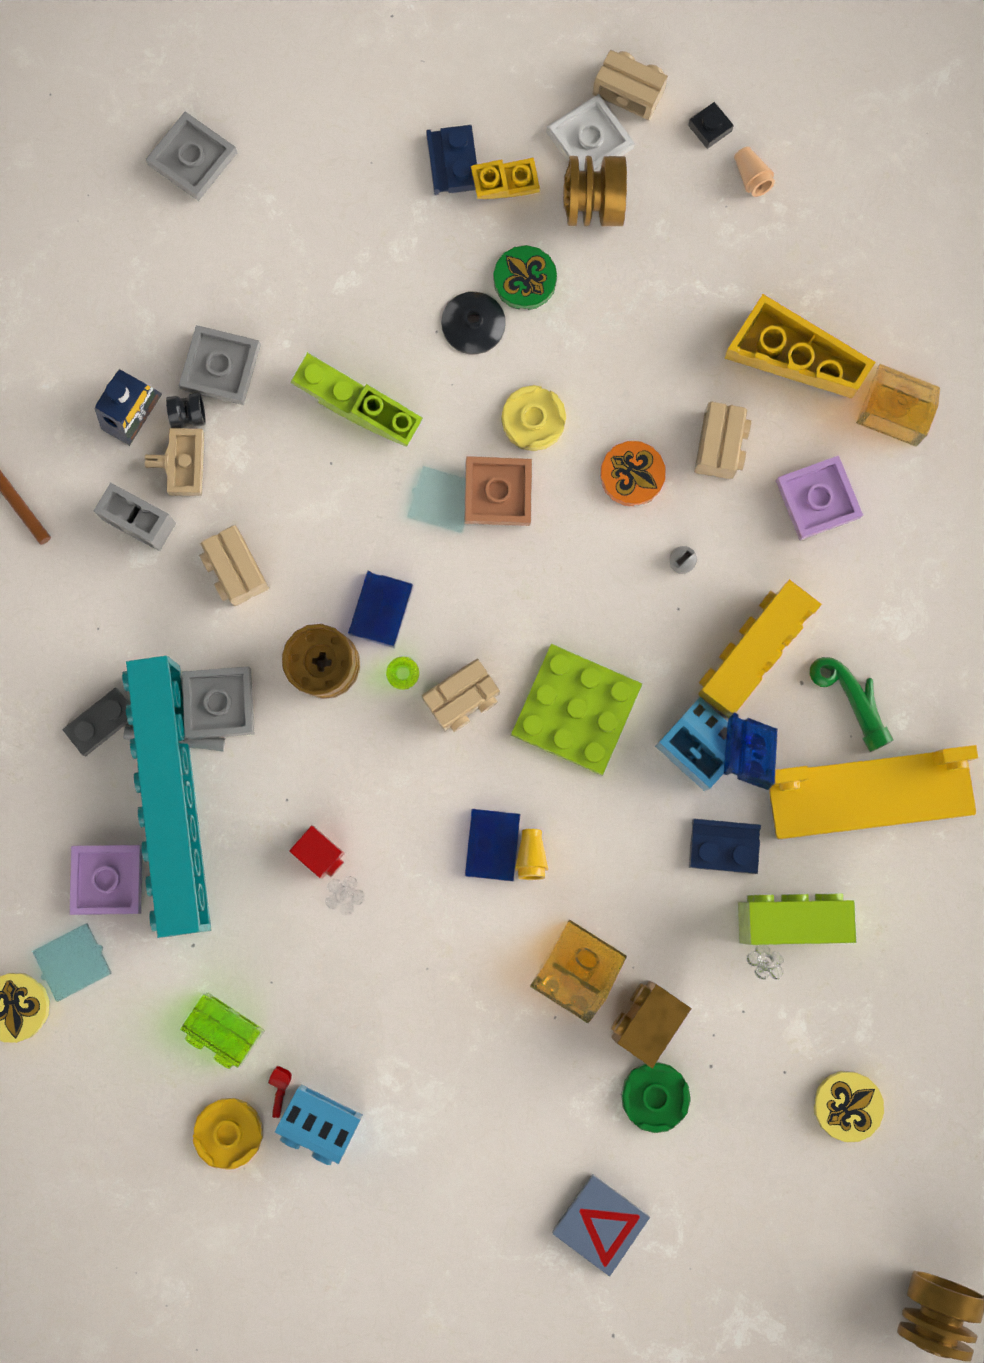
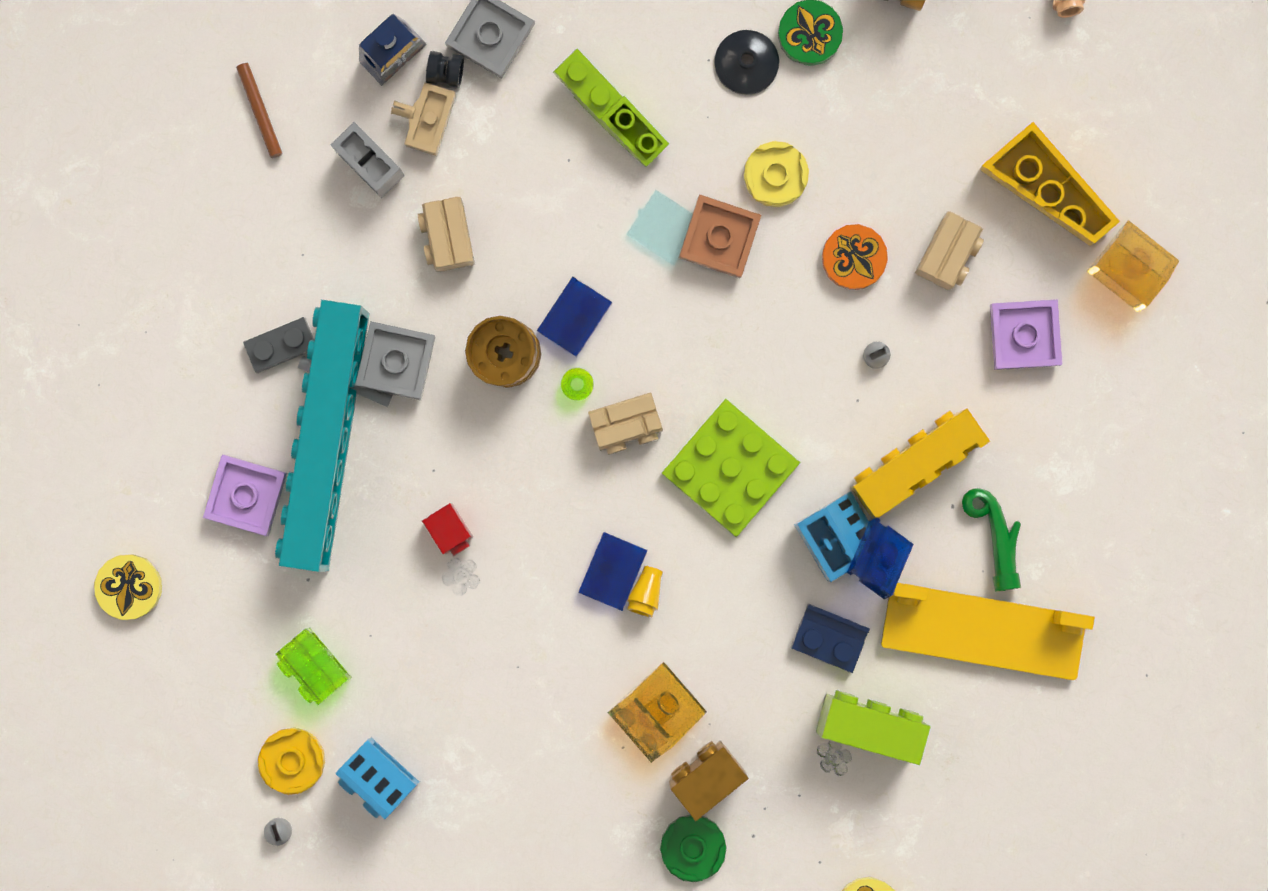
camera: 20 degrees right, 5 degrees up
(72, 962) = (192, 561): clear light blue piece -> none
(239, 1206) = (284, 830): none -> light grey hinge
(280, 1079) = (353, 726): red hand -> none

